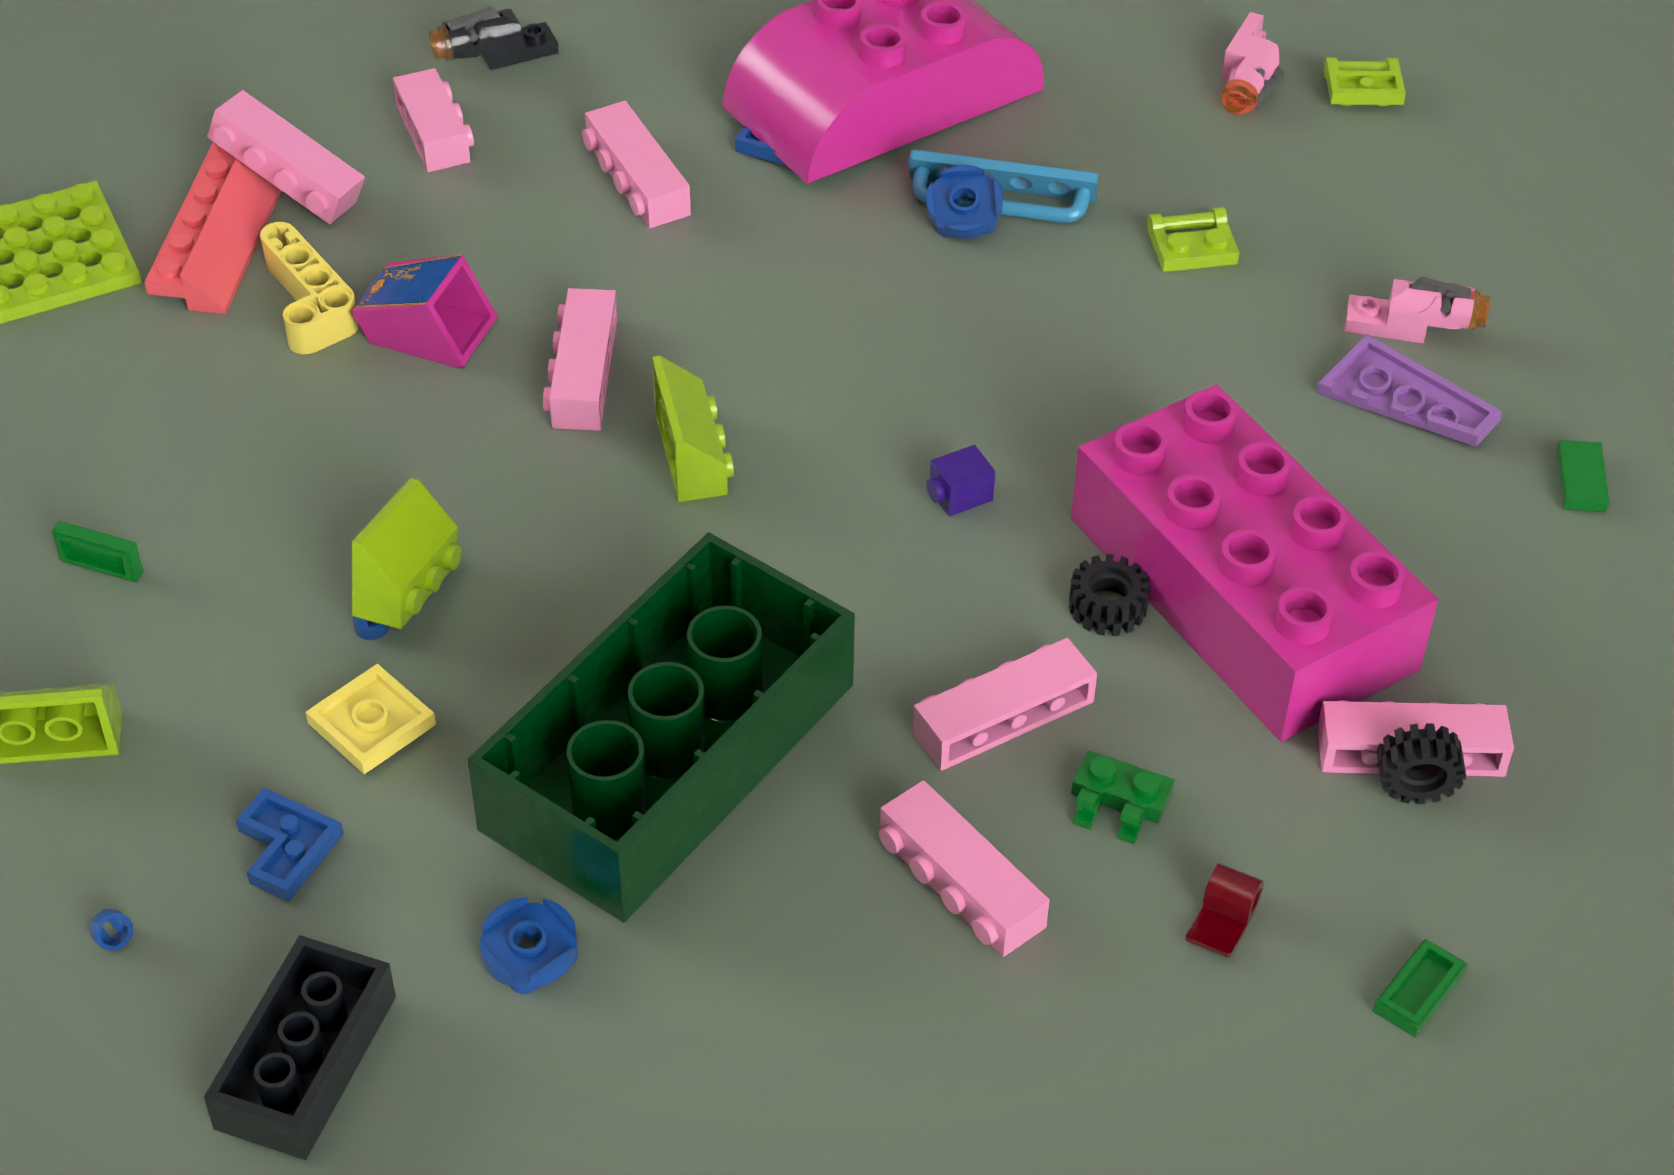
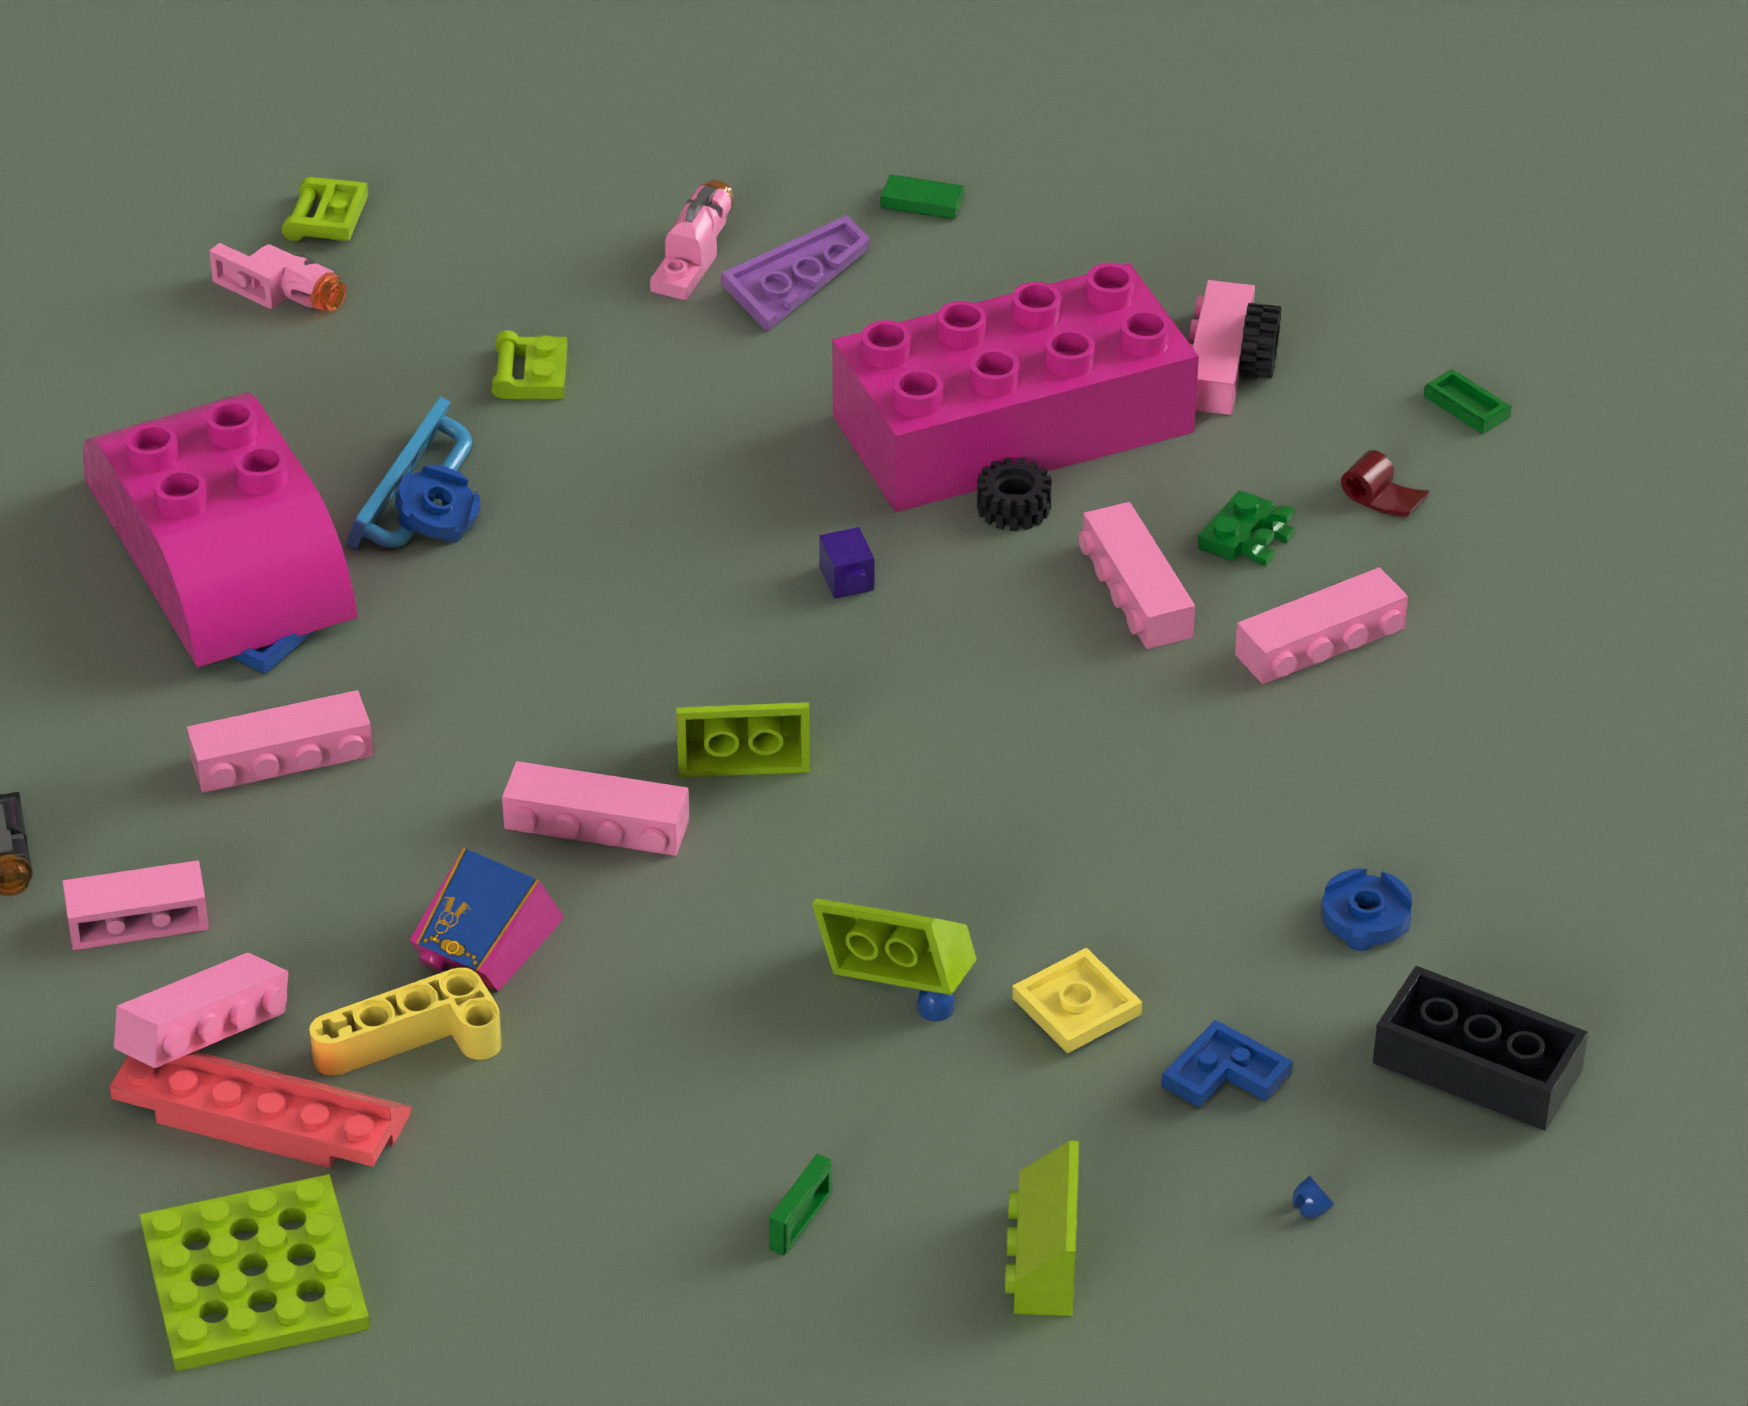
camera: 80 degrees left, 5 degrees down
(663, 725) = (1170, 755): dark green brick -> none

